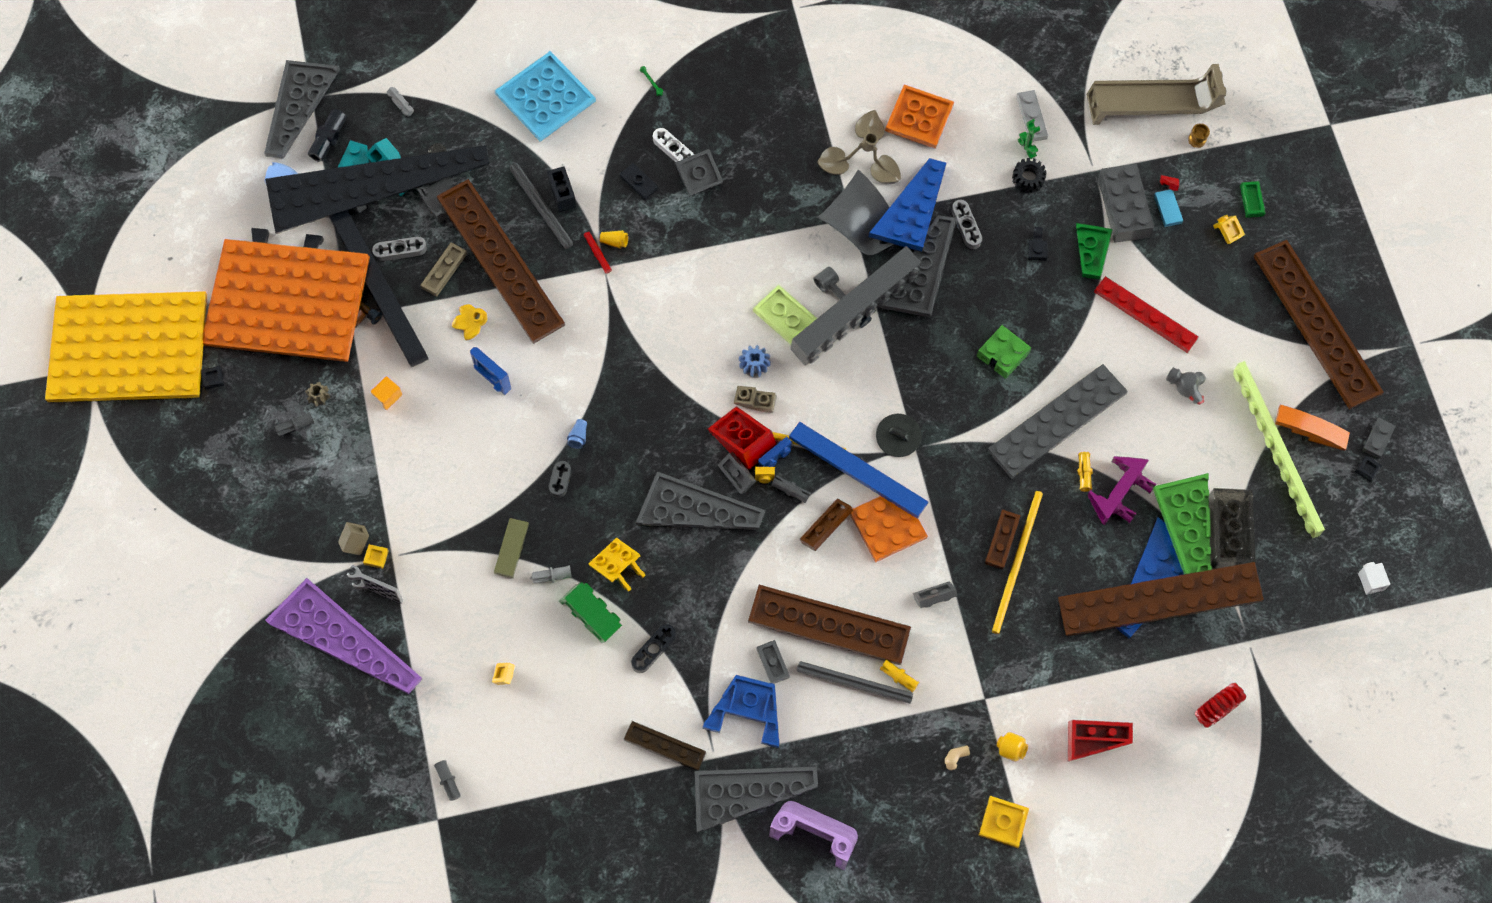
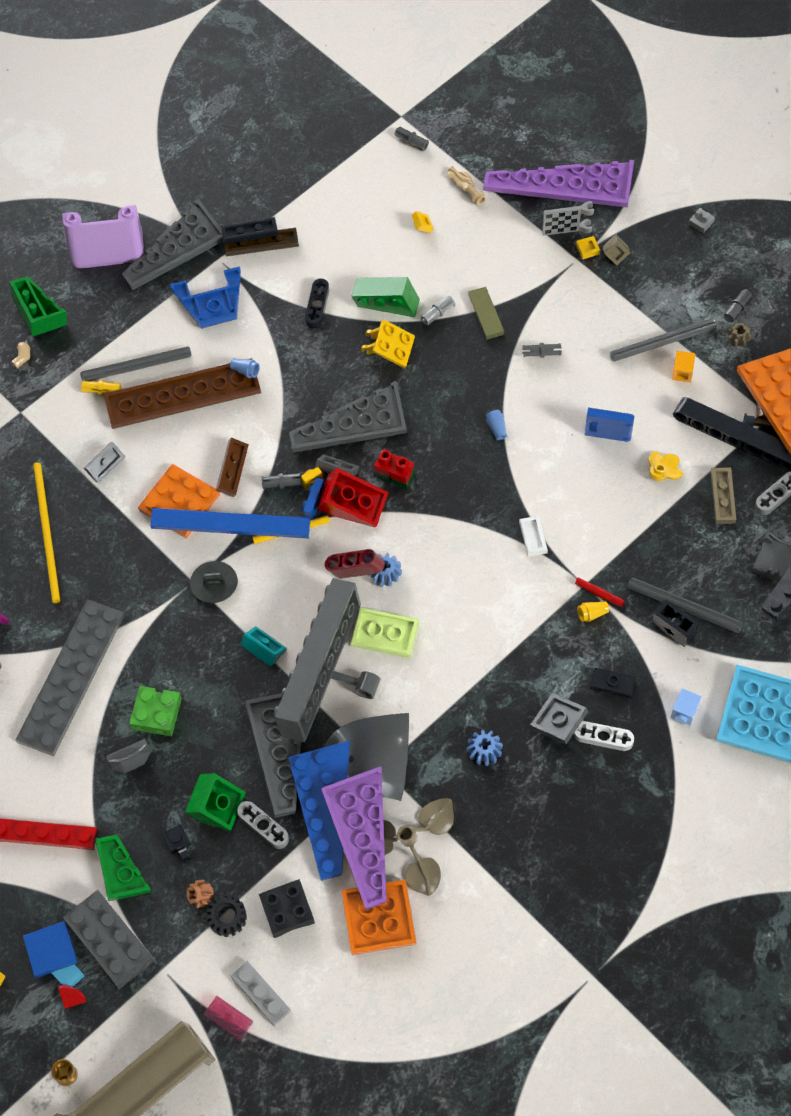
camera: 155 degrees right, 5 degrees down
(255, 526) = (701, 220): none -> light grey tile
(381, 430) = (663, 339): none -> dark grey axle
(433, 699) = (465, 181): none -> tan piece
(490, 480) = (542, 350): none -> dark grey pin
(500, 261) = (680, 527): reddish brown plate -> none
(555, 478) = (481, 384): dark grey beam -> none
(600, 131) = (685, 707): none -> light blue brick
(616, 326) = (533, 536): none -> white tile
(659, 91) = (662, 791): green hinge -> none
(670, 758) = (249, 230): none -> black tile
(691, 441) = (394, 469): none -> red hips
(753, 399) = (367, 539): dark tan slope -> none
(761, 607) = (246, 367): none -> medium blue cone
(768, 184) = (476, 749): none -> medium blue gear
(770, 369) = (354, 563): none -> dark red beam
(773, 662) = (212, 342): dark grey plate -> none
(887, 359) = (263, 646): none -> teal slope
(898, 170) = (358, 819): none -> medium lavender wing
(919, 790) = (35, 307): none -> green wedge
(982, 156) = (286, 908): none -> black brick
(995, 257) = (215, 801): none -> green slope
(1002, 539) = (68, 540): reddish brown plate -> none
(1027, 138) = (241, 945): green bar -> none
(1041, 197) = (200, 893): none -> nougat gear
(1044, 324) = (129, 757): none -> dark grey slope
(1063, 113) = (228, 1018): none -> clear pink plate
(1085, 471) = (21, 641): yellow pin -> none
(1172, 218) = (50, 949): none -> blue tile

